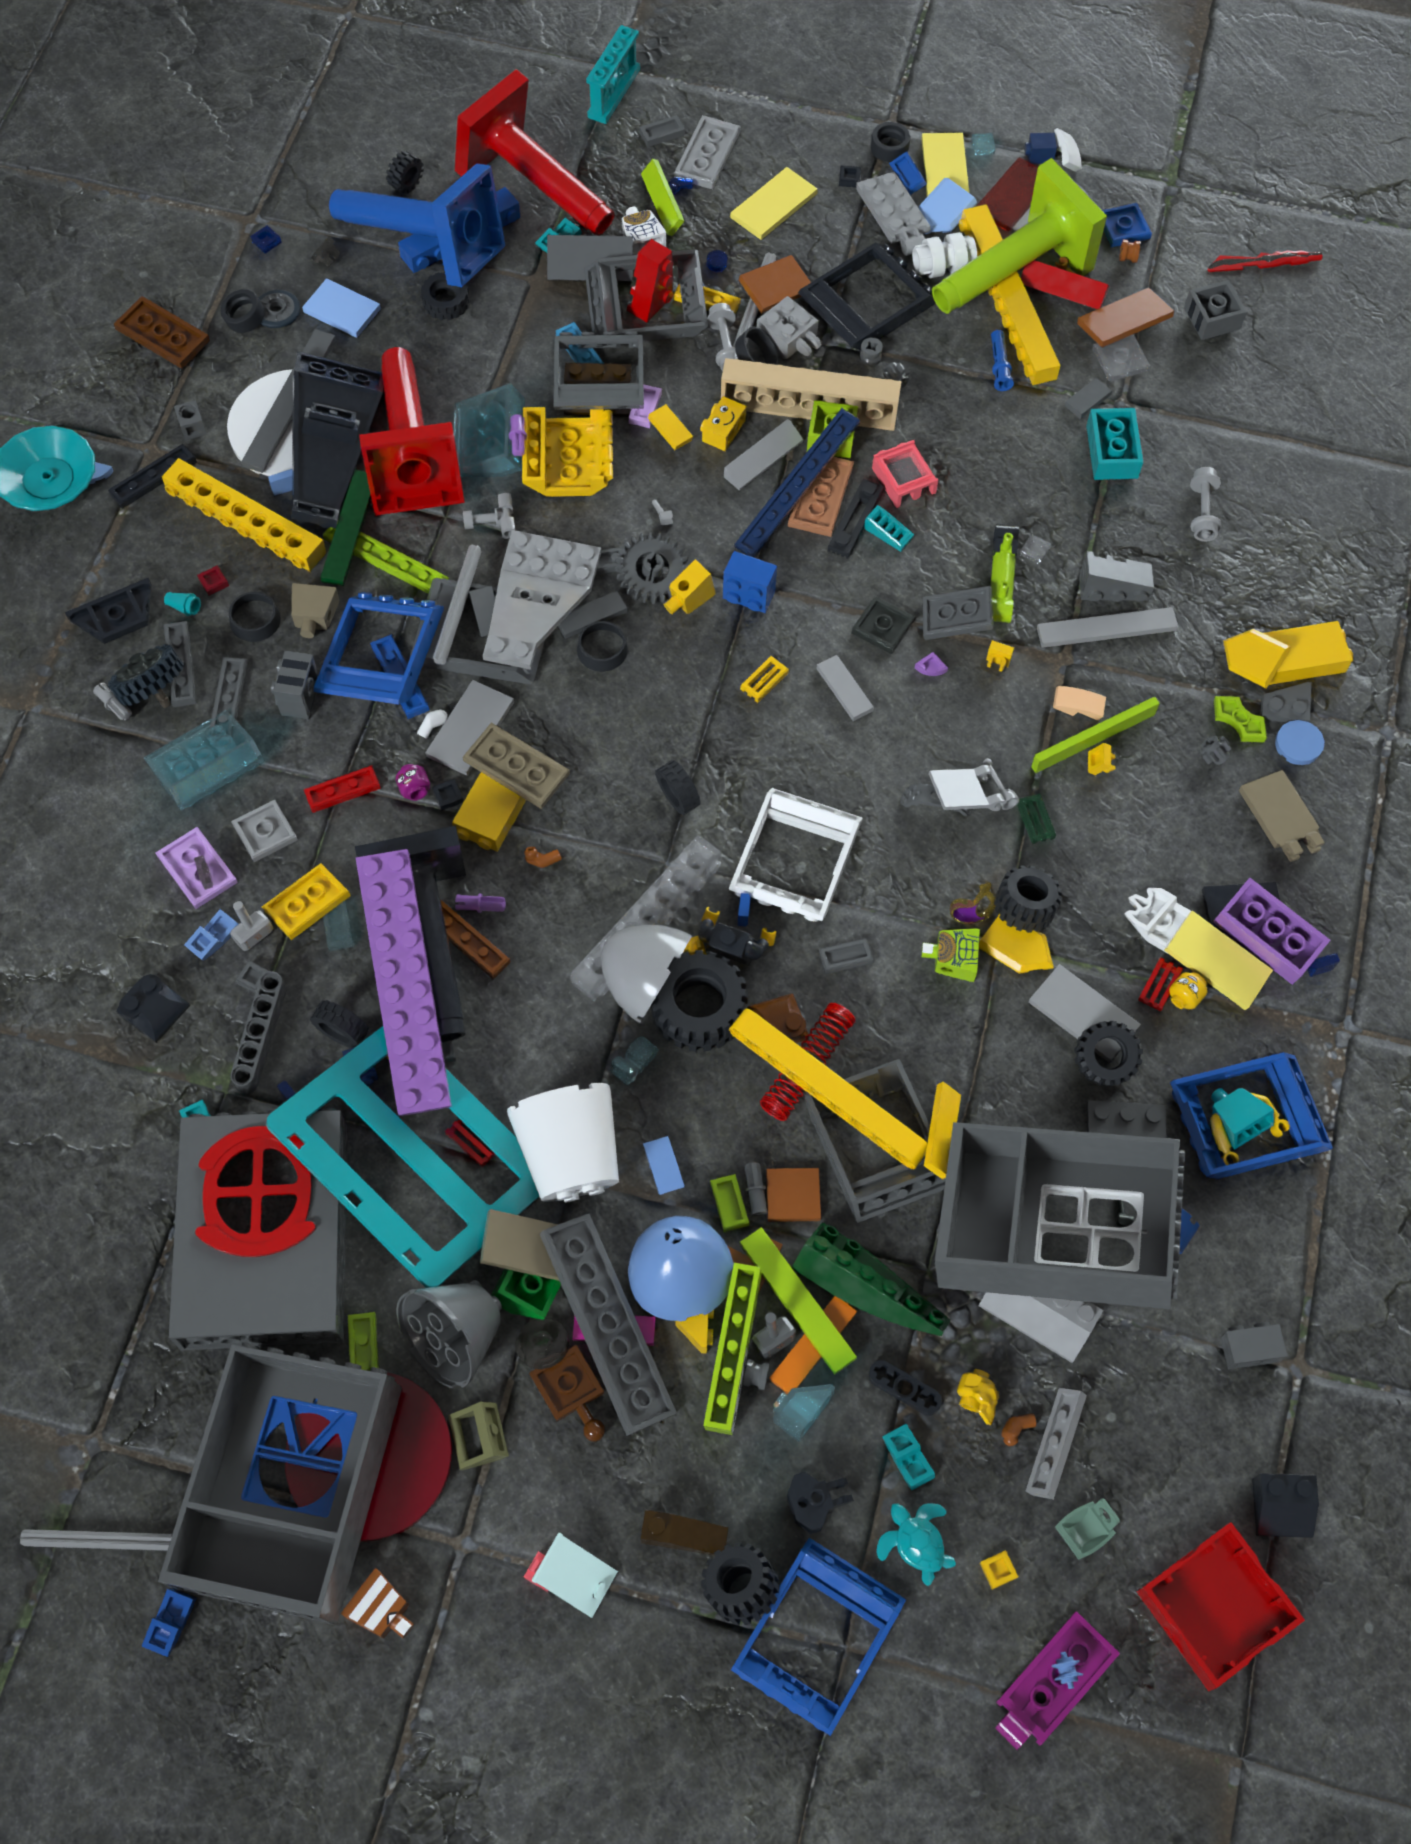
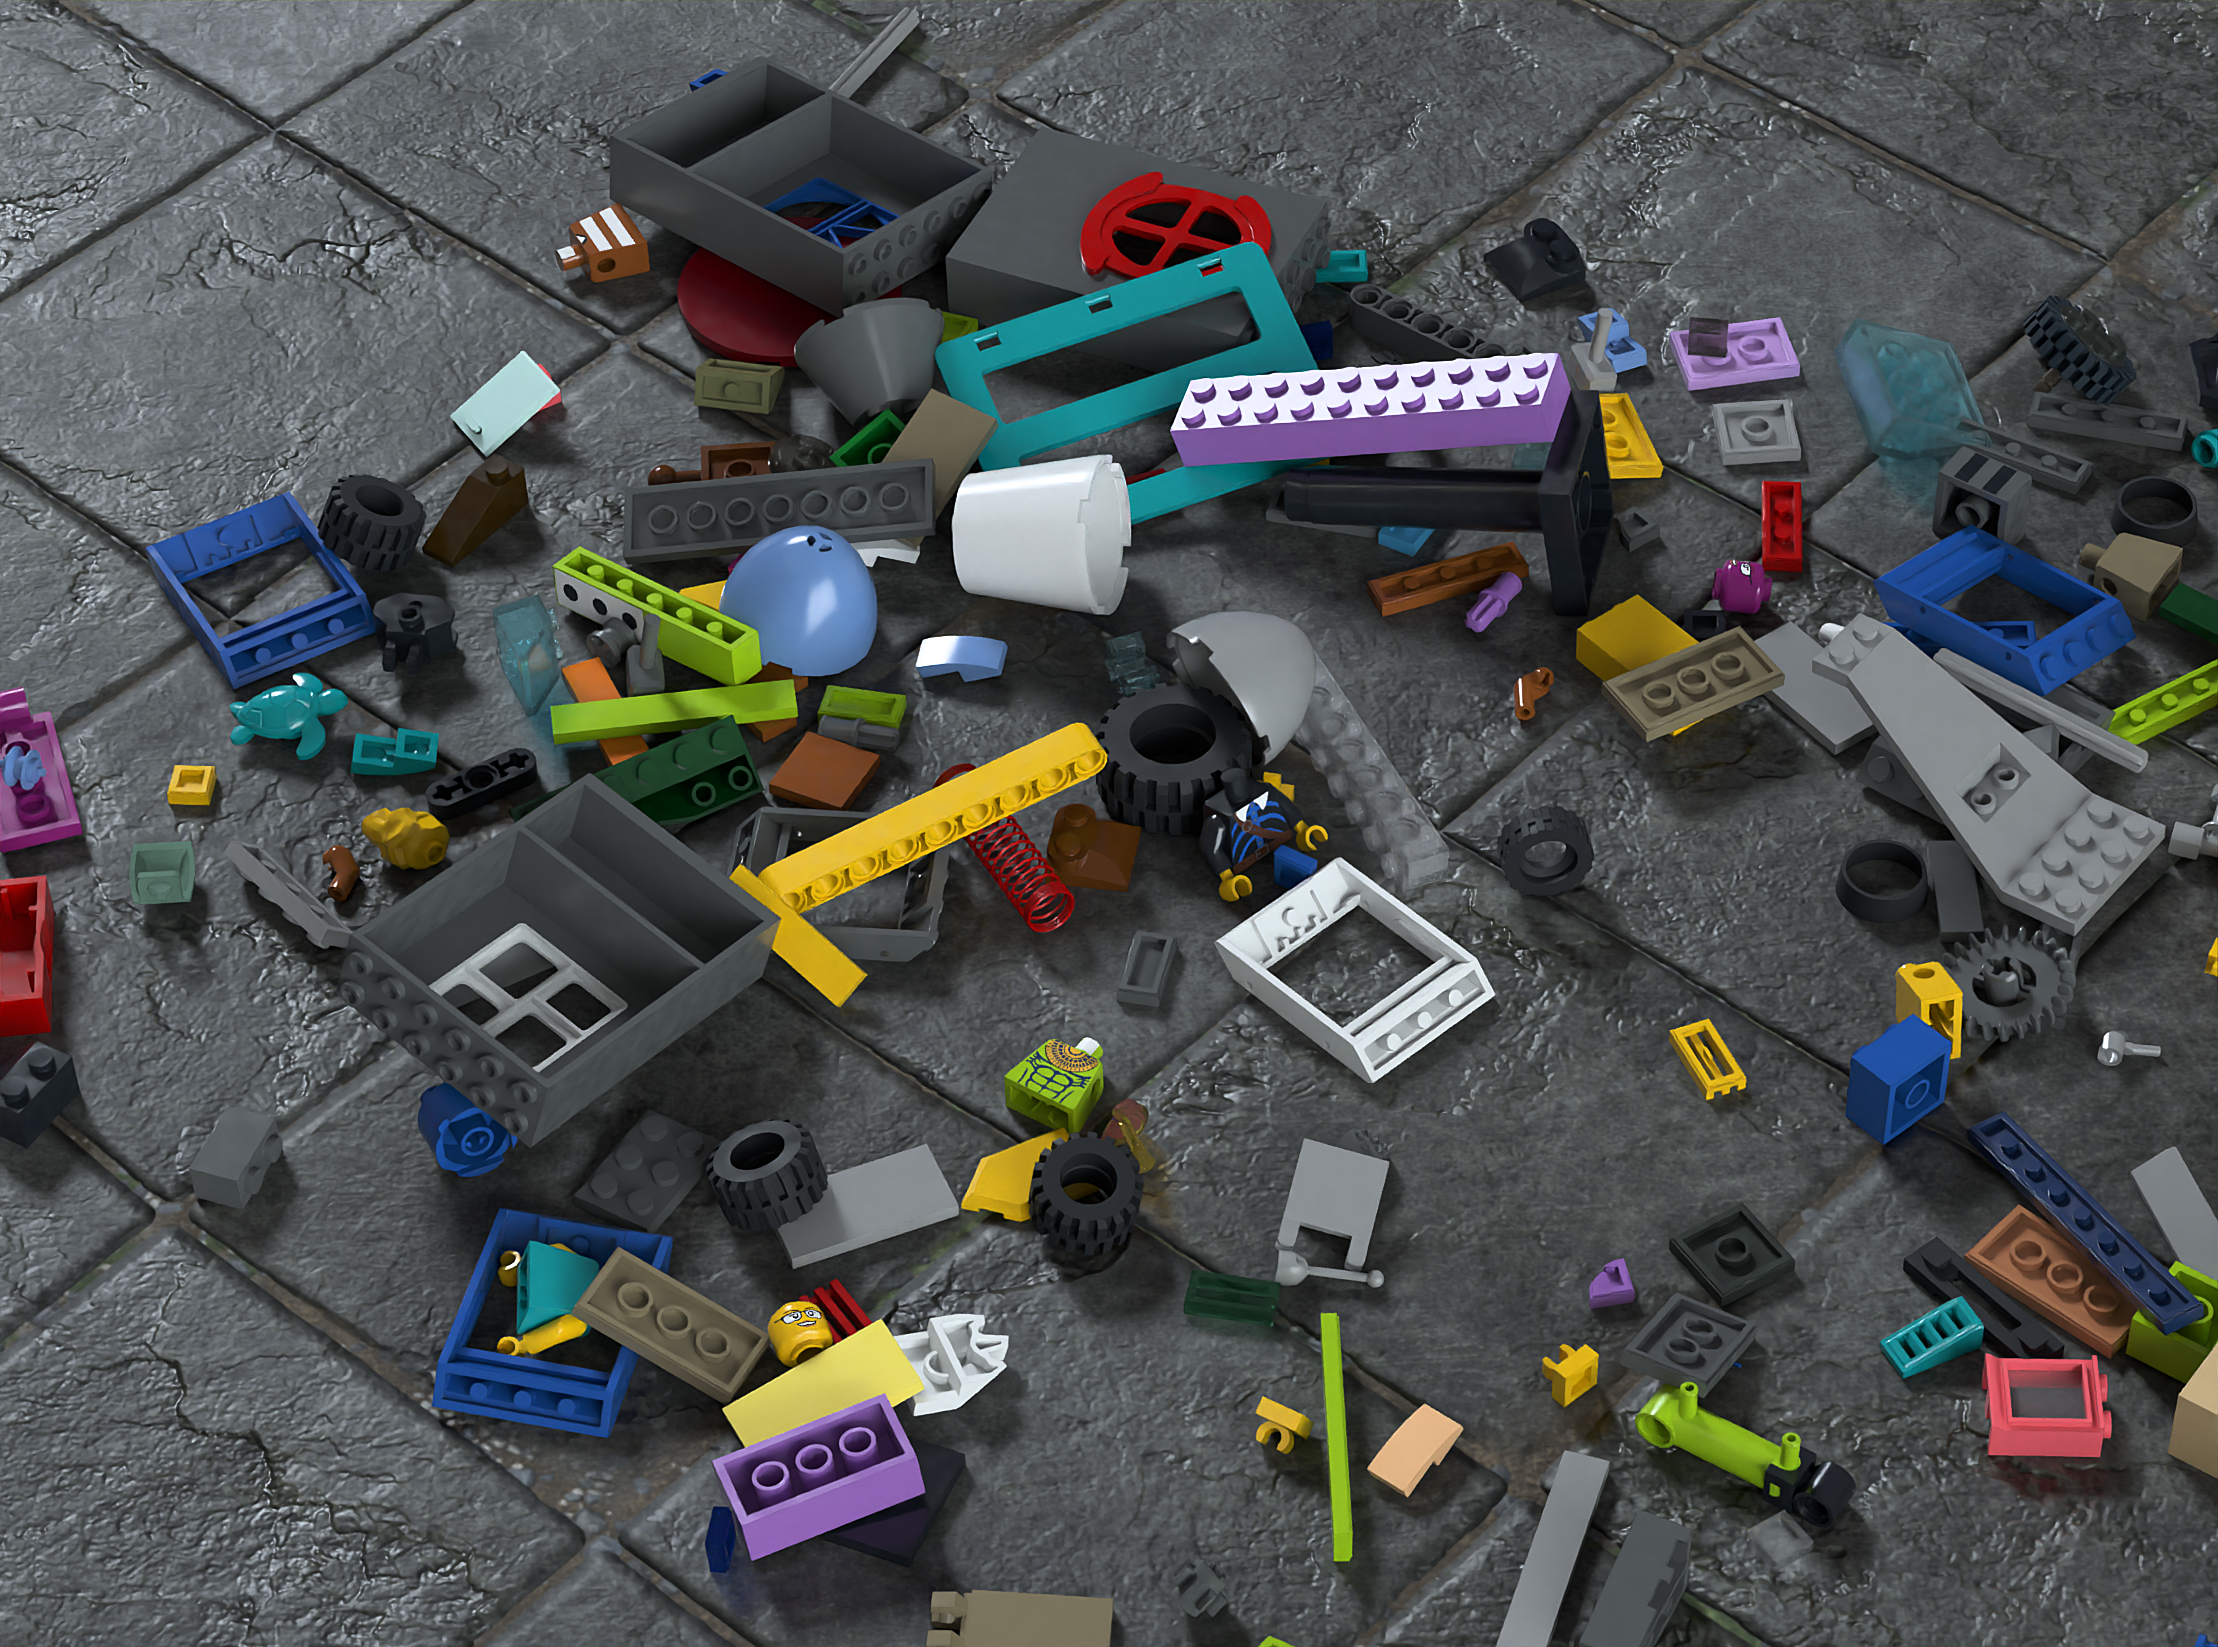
camera: 120 degrees right, 20 degrees down
(845, 688) = (1630, 1152): light grey tile -> none
(1226, 1049) = (672, 1326): none -> dark tan tile

